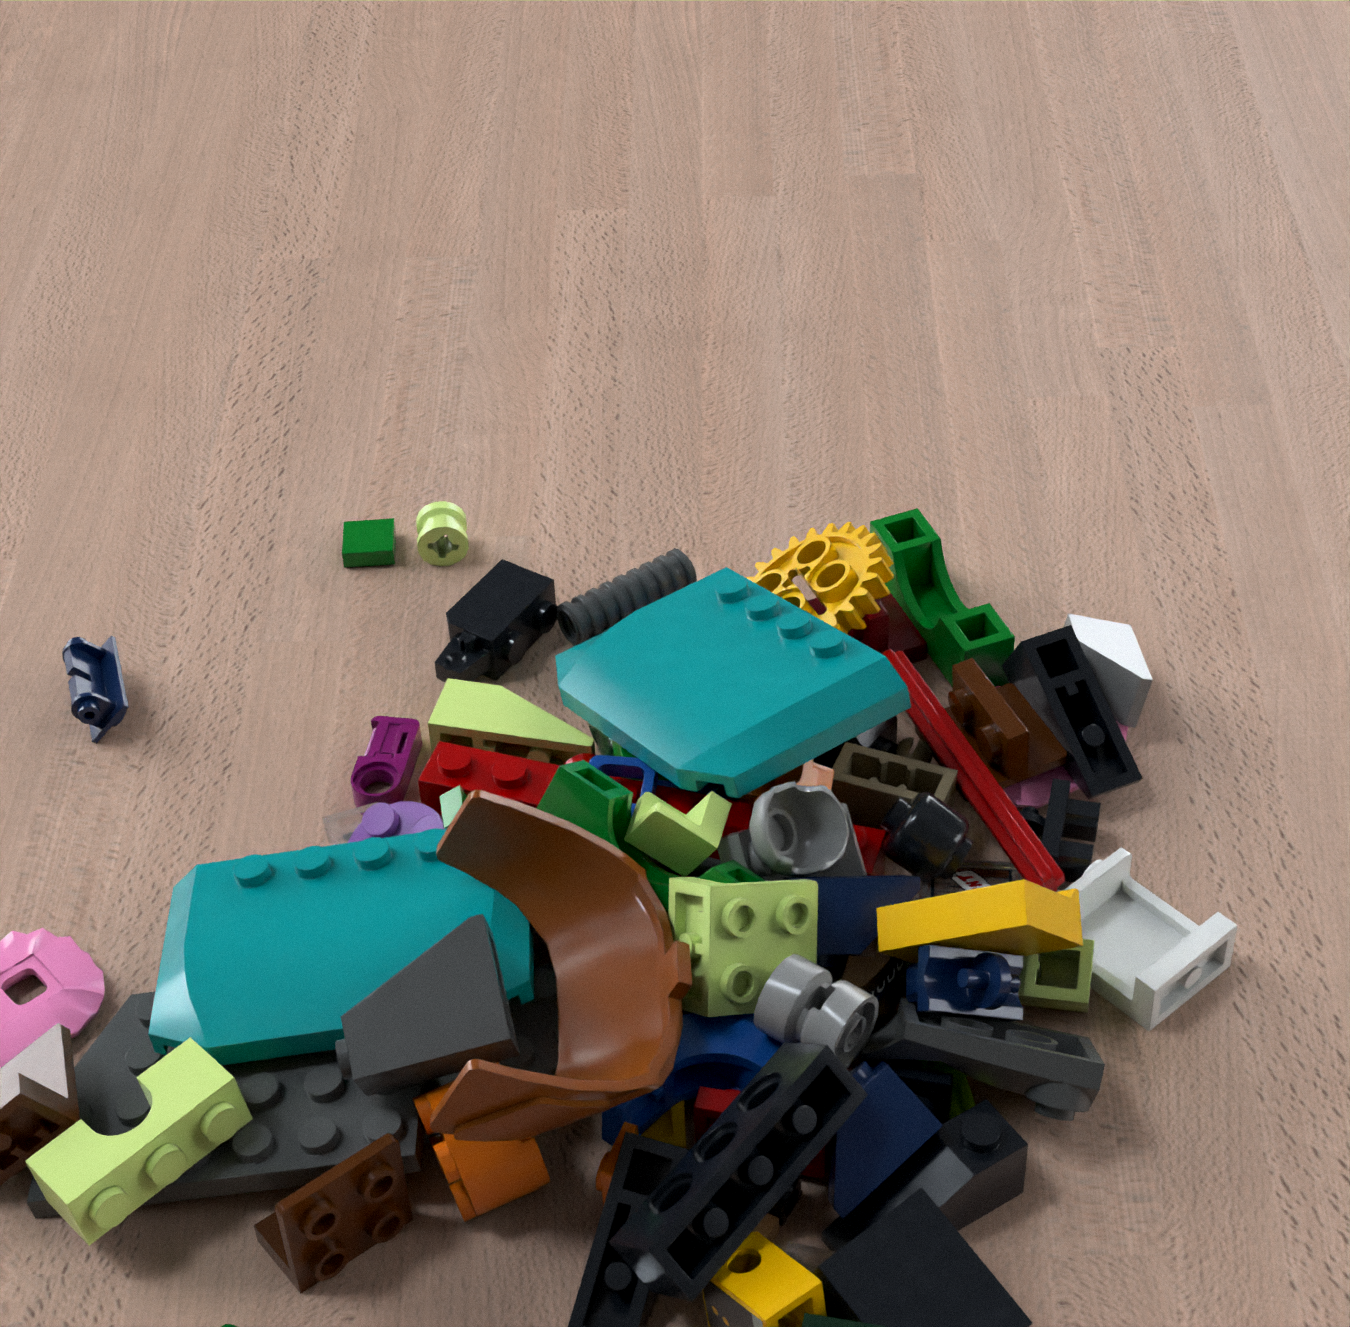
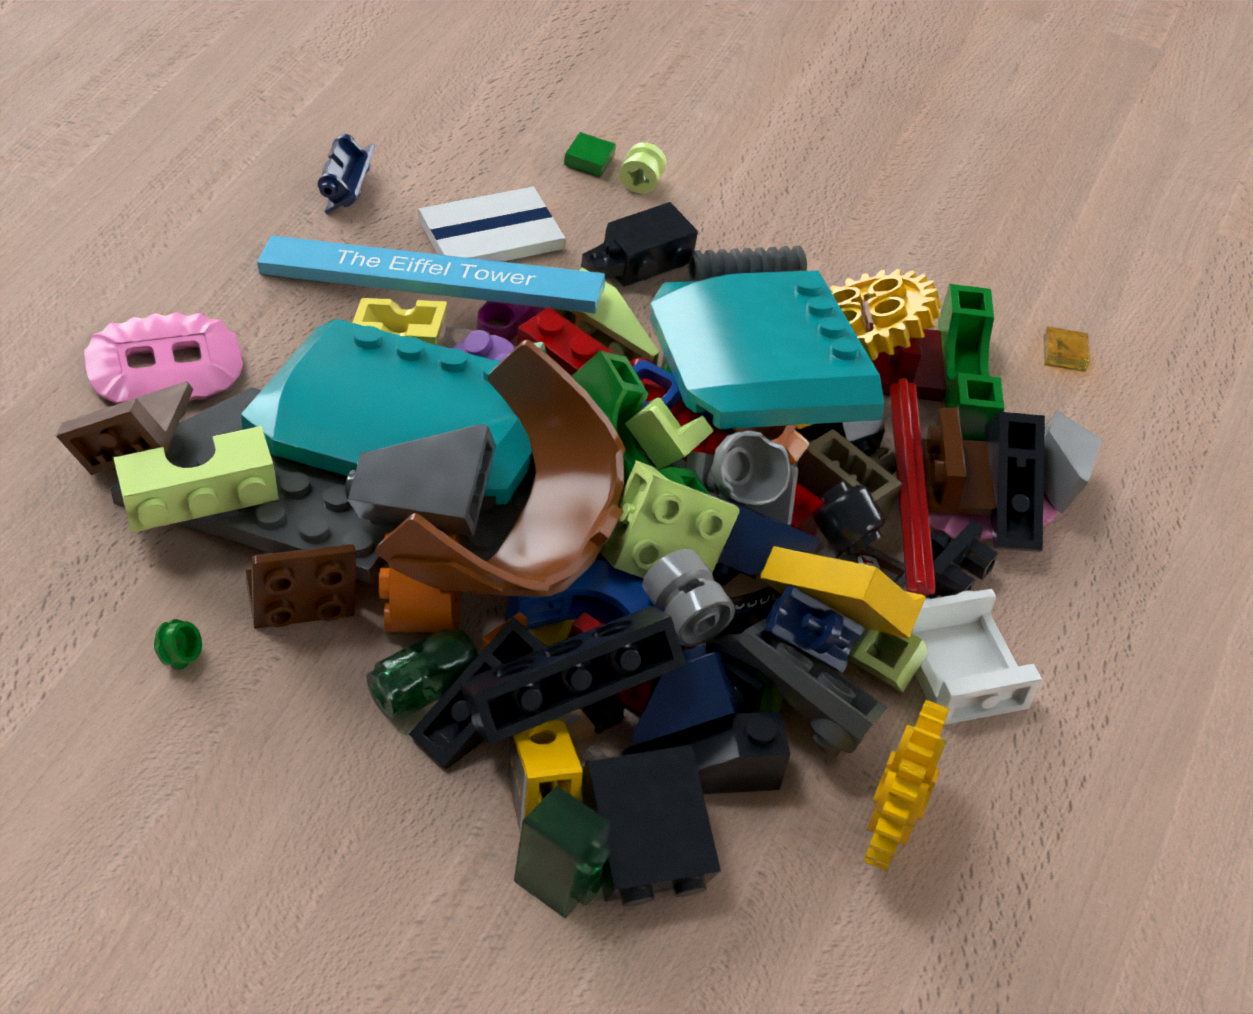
camera: 15 degrees right, 5 degrees up
(270, 762) = (432, 274): none -> medium azure tile
(292, 827) = (421, 322): none -> light yellow cylinder
(305, 679) = (493, 226): none -> white tile
(537, 1254) = (420, 672): none -> clear green piece
(1022, 542) = (1066, 349): none -> clear yellow tile
(1181, 1119) = (906, 785): none -> yellow gear

